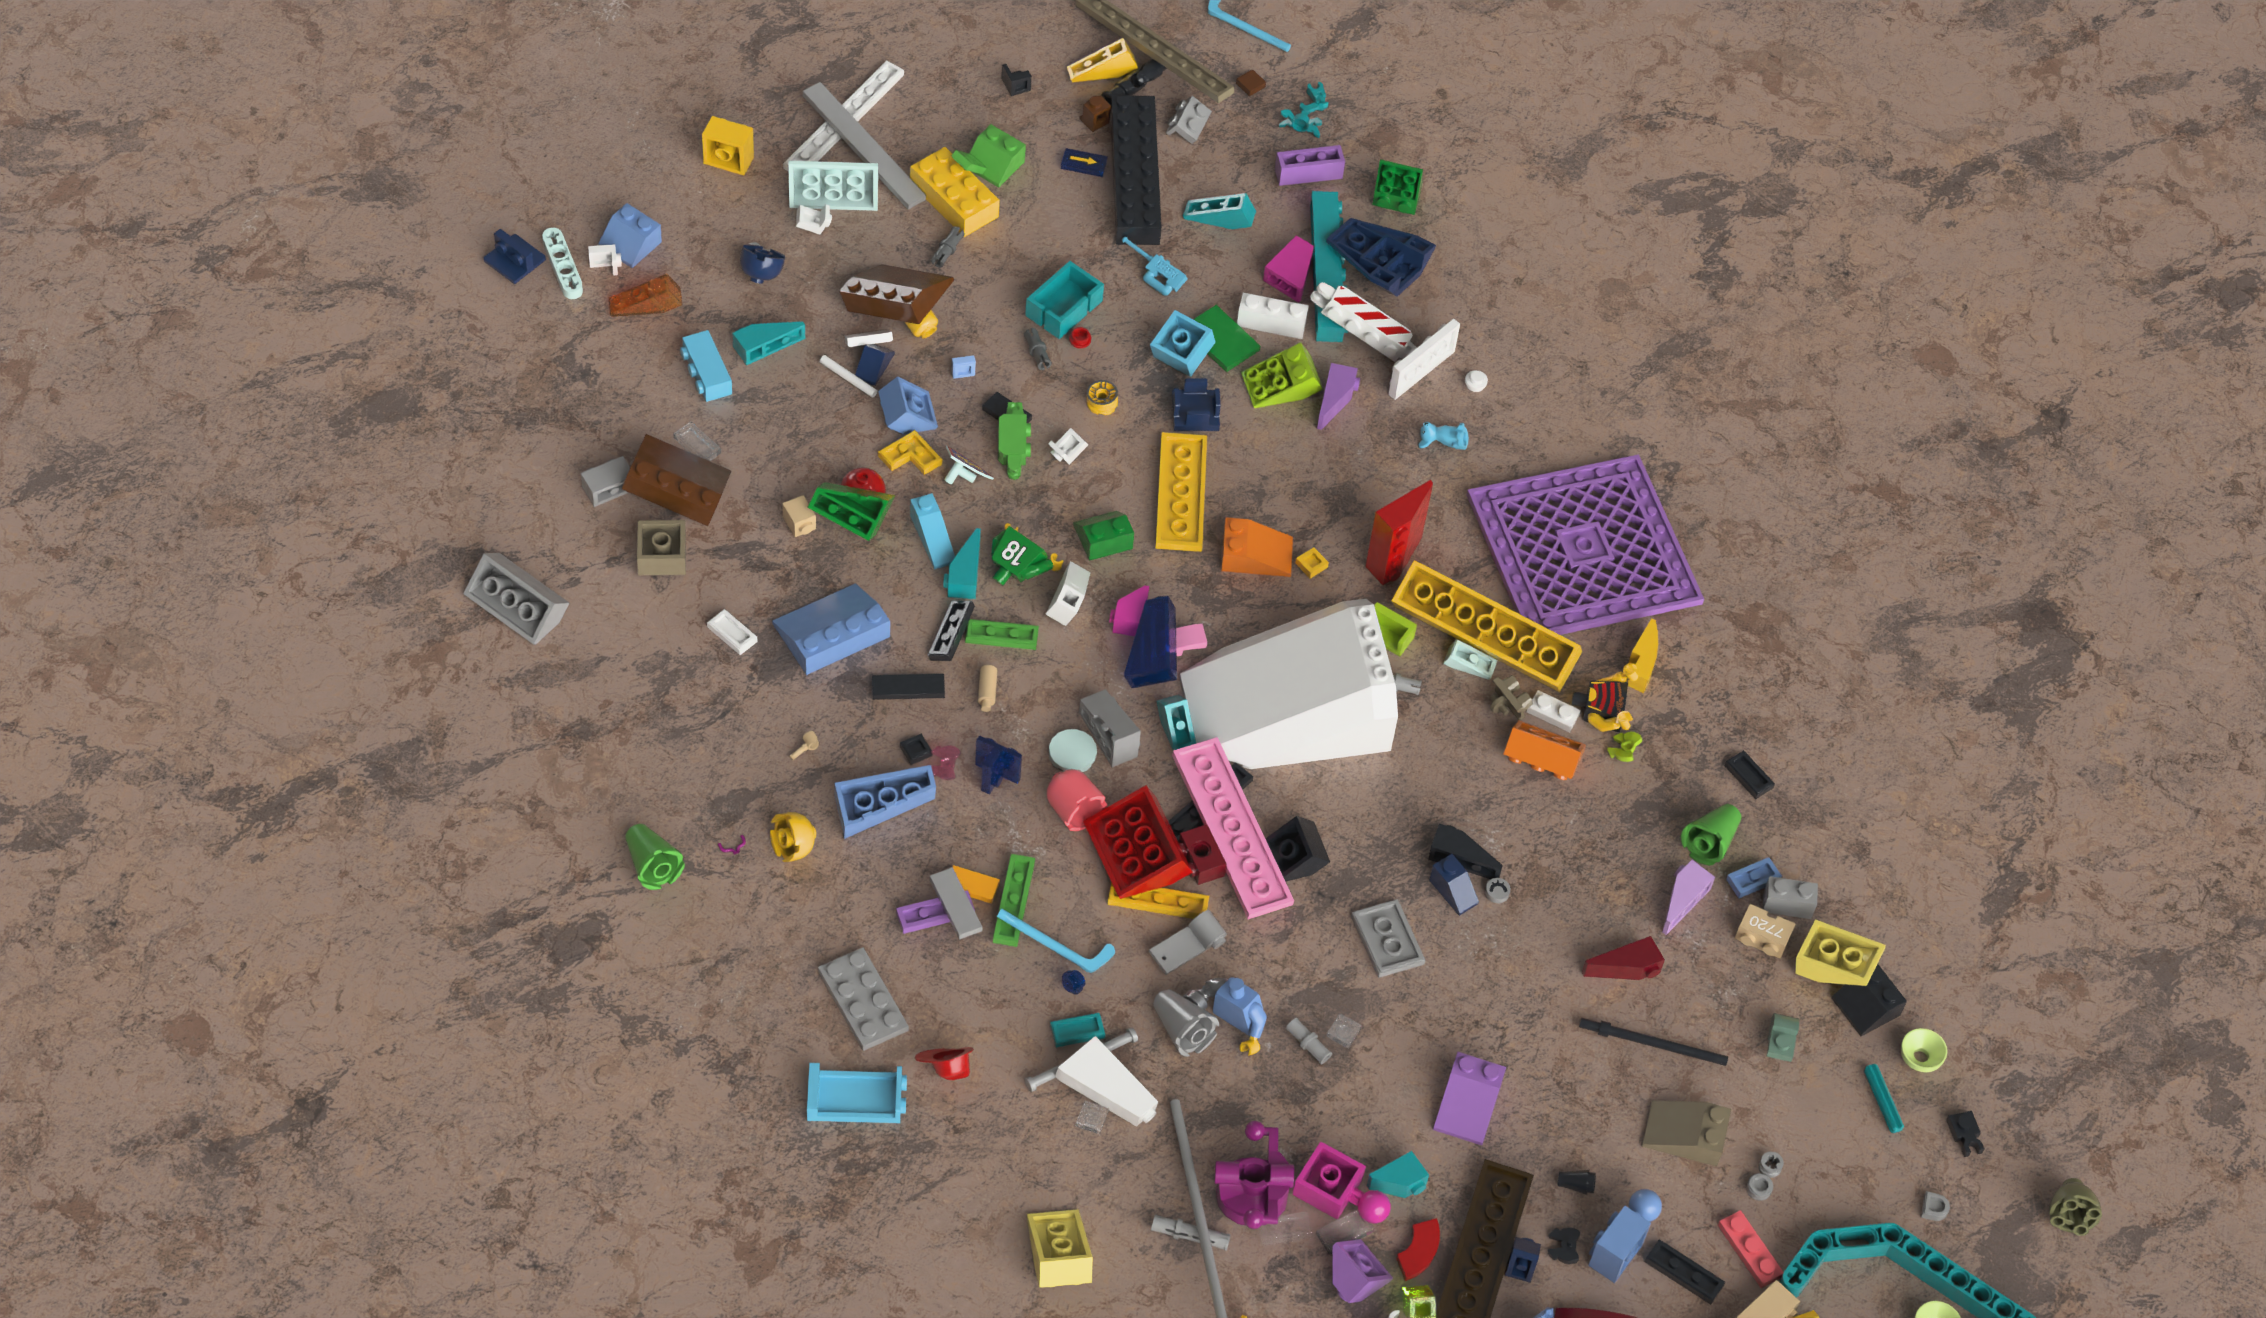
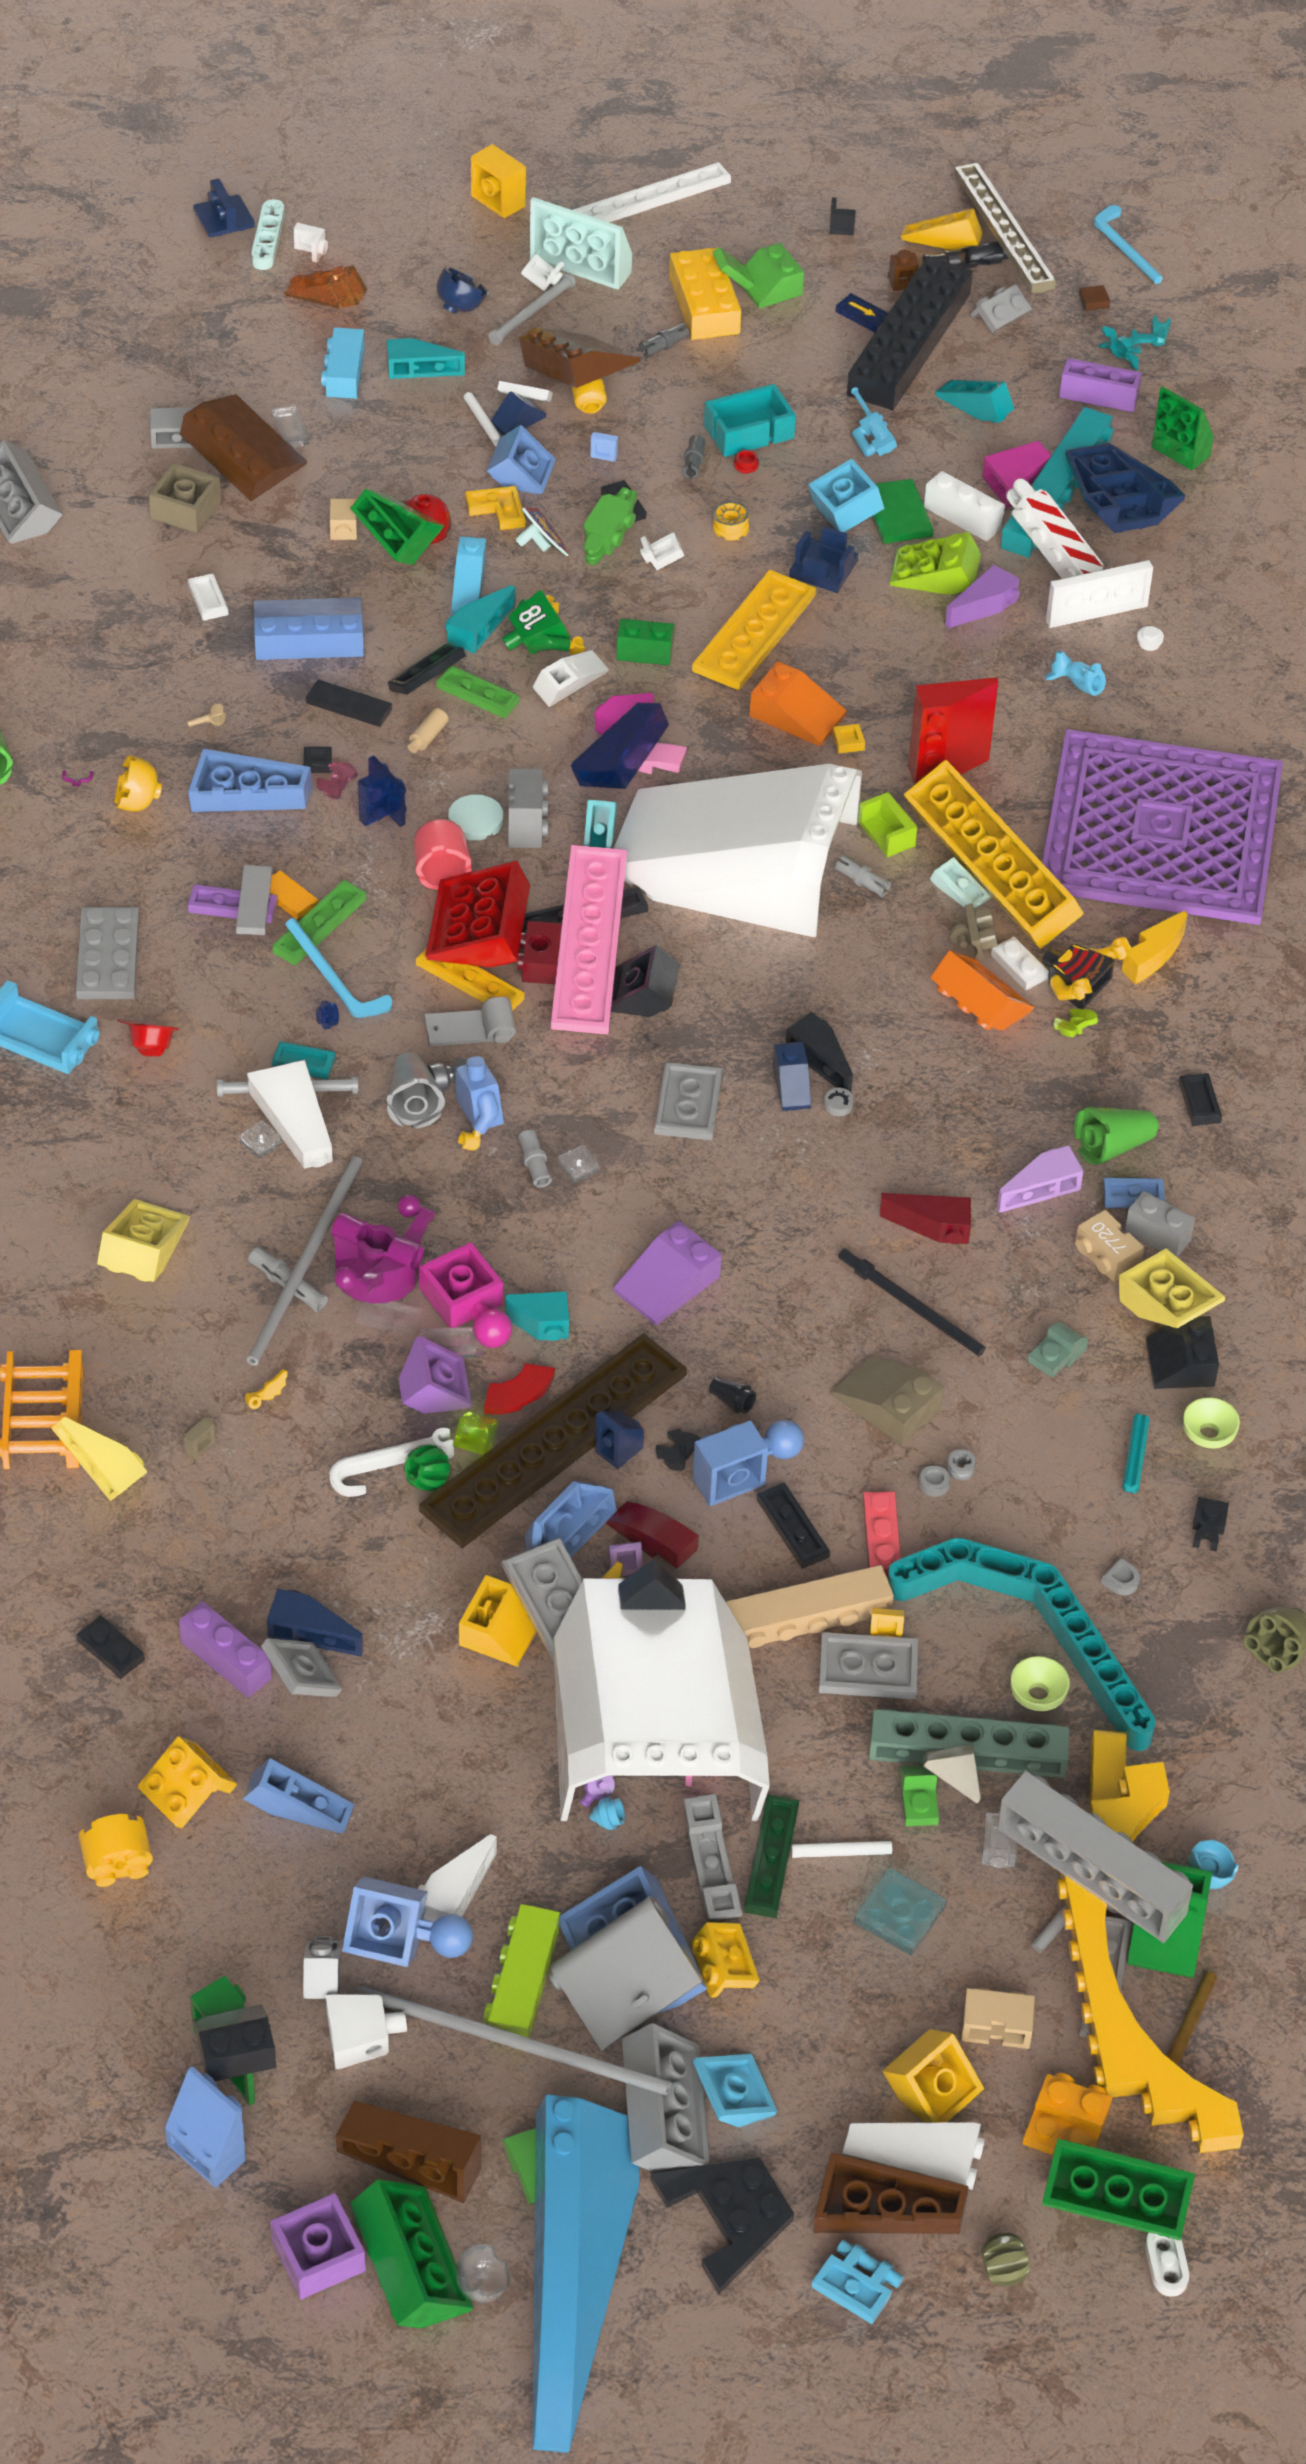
camera: 30 degrees right, 5 degrees down
(632, 234) = (351, 230): medium blue slope -> none
(811, 293) = (496, 336): none -> light grey bar
(864, 145) = (641, 227): light grey tile -> none

